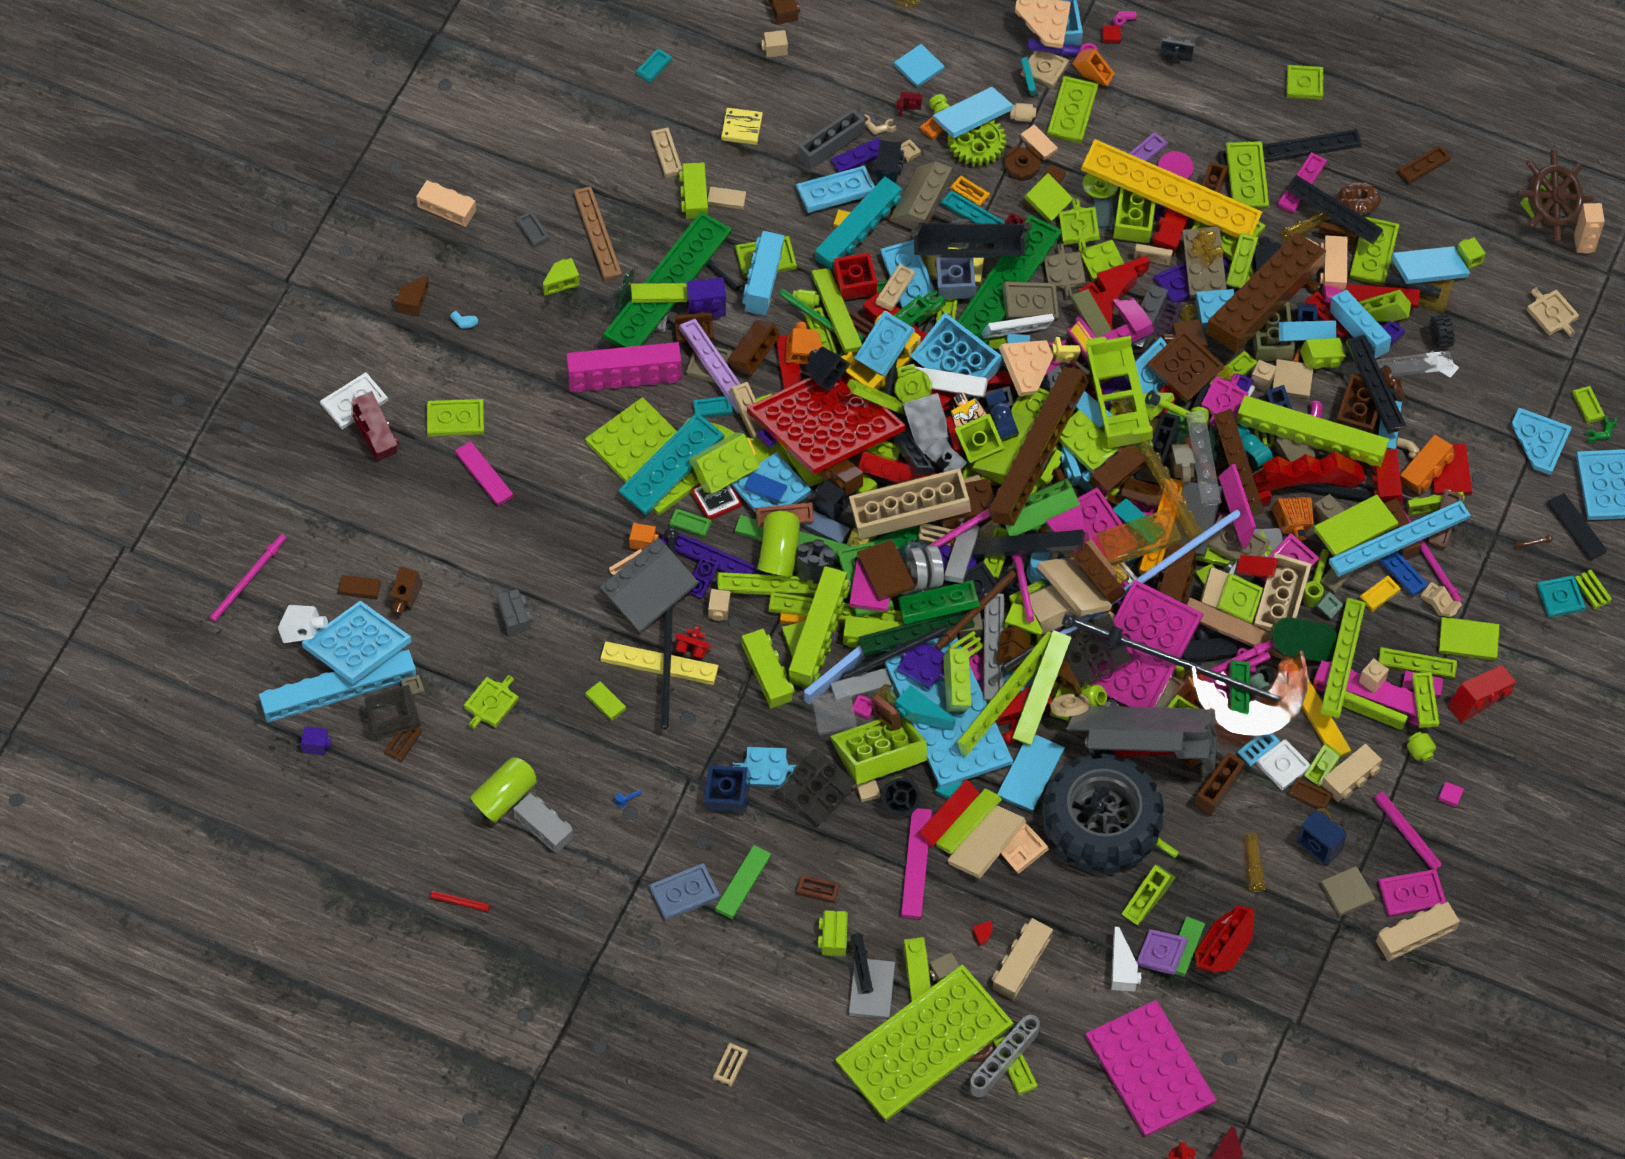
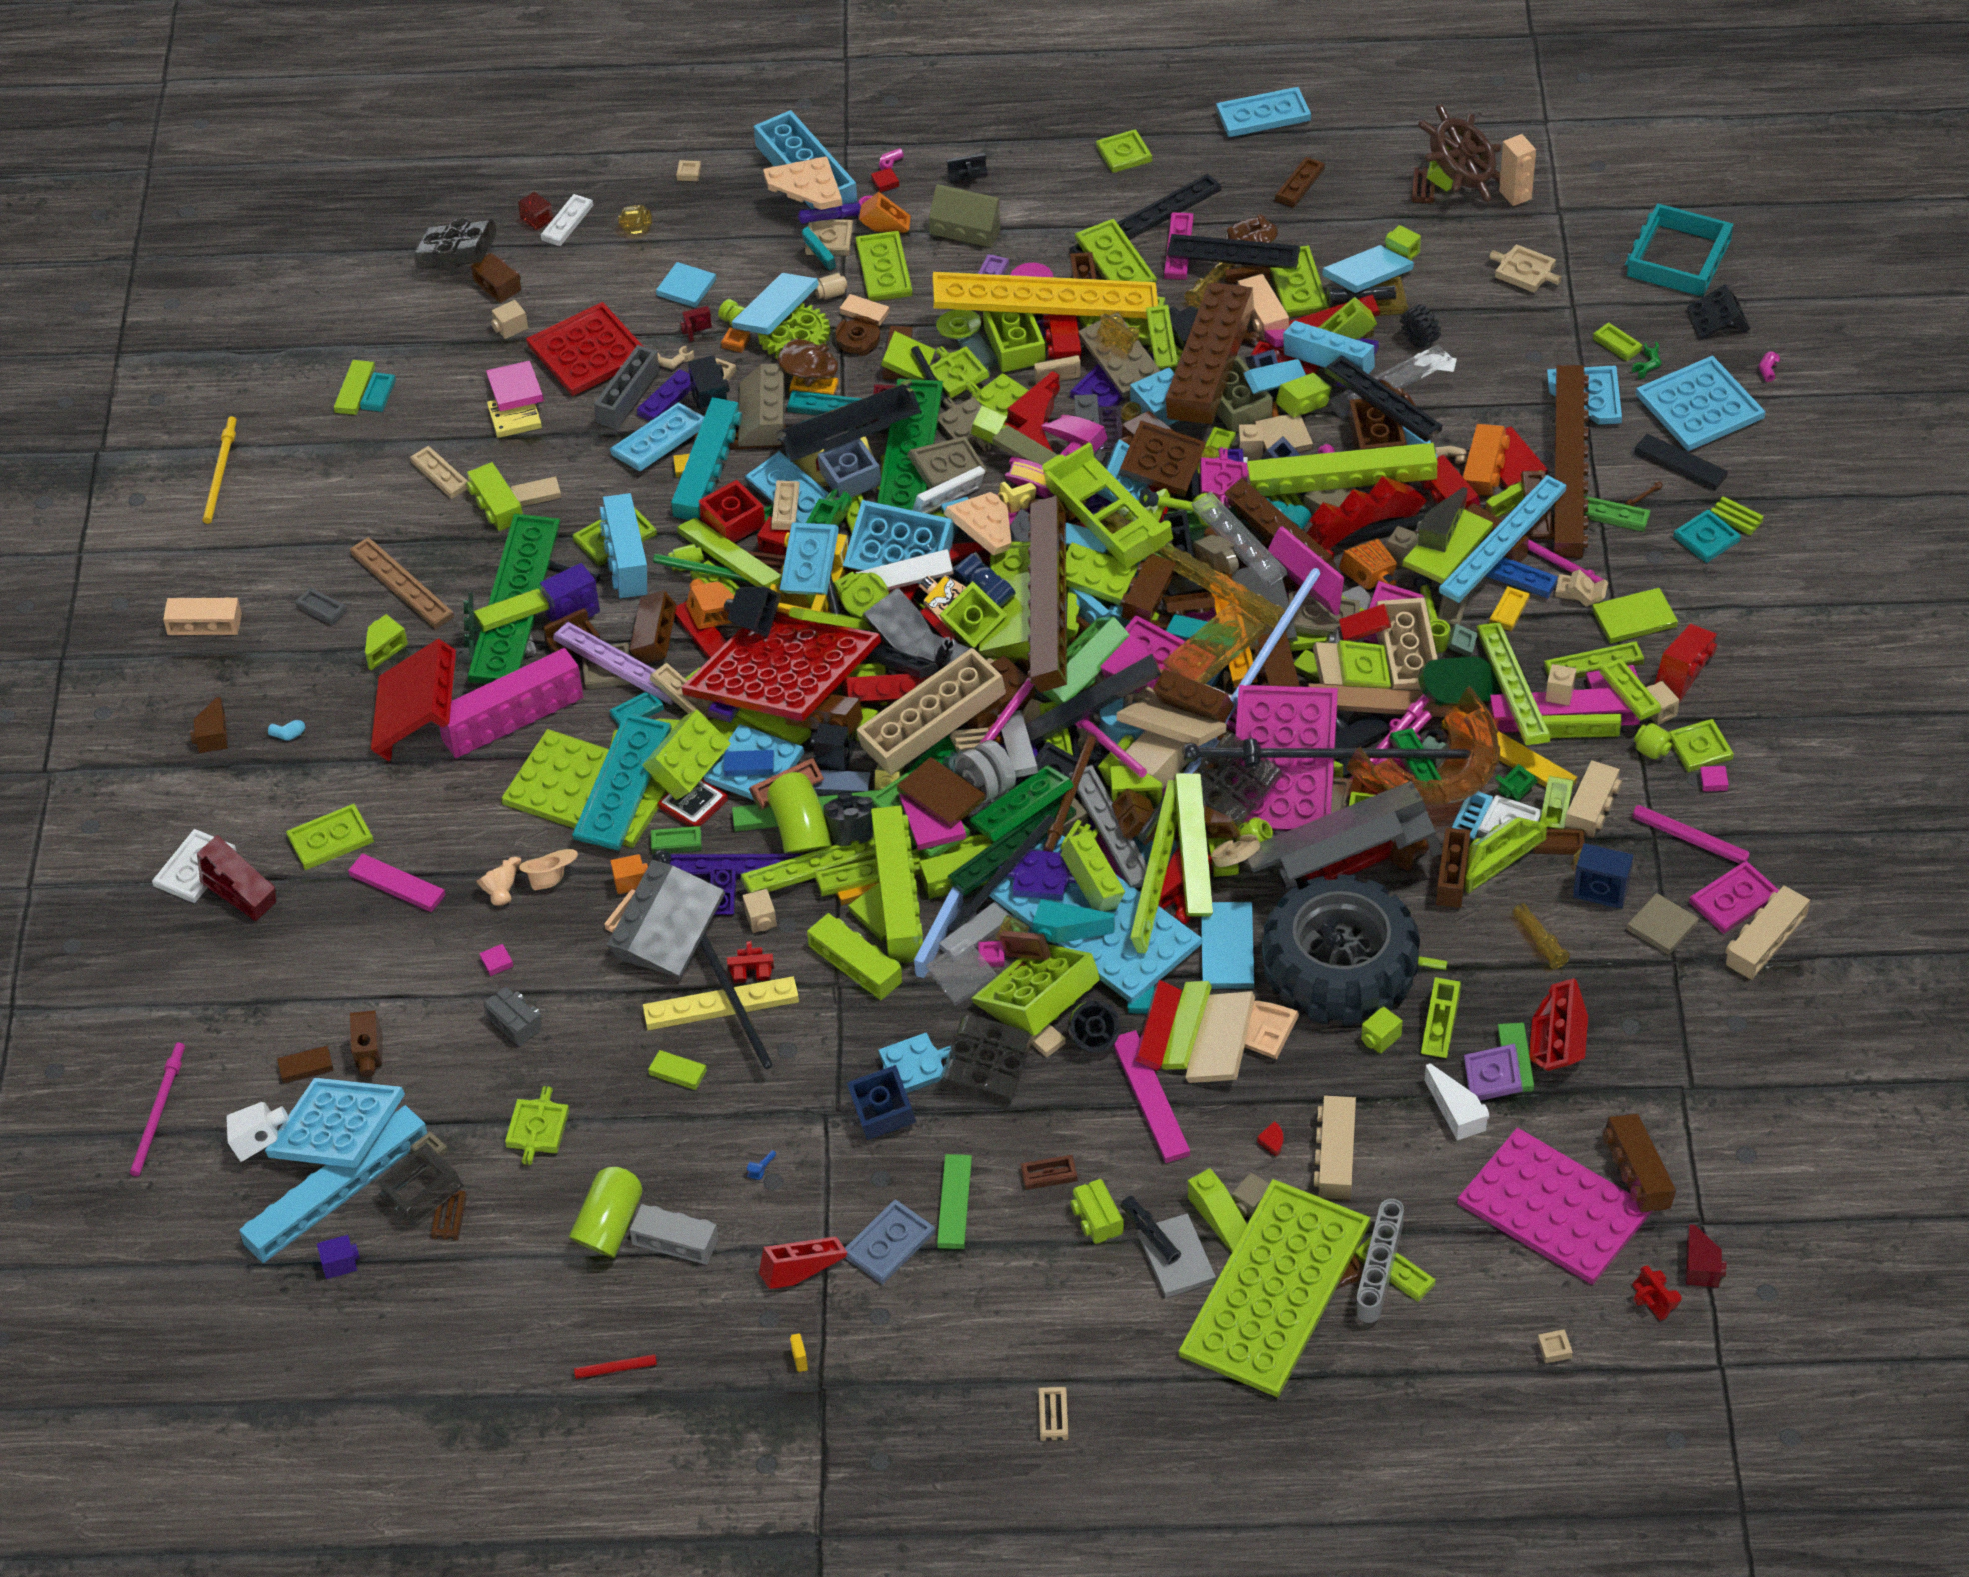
camera: 20 degrees left, 10 degrees down
(523, 563) = (496, 959): none -> dark pink tile
(530, 60) = (227, 438): none -> yellow bar
(552, 504) = (499, 881): none -> light nougat hair
(557, 335) = (413, 695): none -> red panel
(583, 946) = (798, 1352): none -> yellow tile
(590, 508) = (549, 869): none -> light nougat piece
(612, 880) = (796, 1261): none -> red slope
(638, 54) = (354, 387): none -> lime tile
(752, 102) = (514, 386): none -> tile
(819, 91) = (584, 348): none -> red plate
(971, 172) = (807, 361): none -> reddish brown piece
(1056, 214) = (925, 368): none -> black bar
(1075, 281) = (988, 424): none -> lime brick
(1101, 885) = (1381, 1030): none -> lime brick
(1151, 94) = (965, 216): none -> olive slope
(1223, 1064) = (1639, 1163): none -> reddish brown brick
(1260, 784) = (1501, 848): none -> lime wedge
(1303, 736) = (1516, 783): none -> green bracket
(1358, 507) = (1441, 522): none -> clear smoke slope
(1428, 91) = (1263, 112): none -> medium azure plate
(1446, 717) = (1667, 700): none -> tan brick
(1456, 763) = (1700, 745): none -> lime tile
(1490, 491) = (1570, 460): none -> reddish brown brick
(1501, 547) = (1617, 514): none -> bright green tile
(1510, 218) = (1417, 173): none -> copper tile

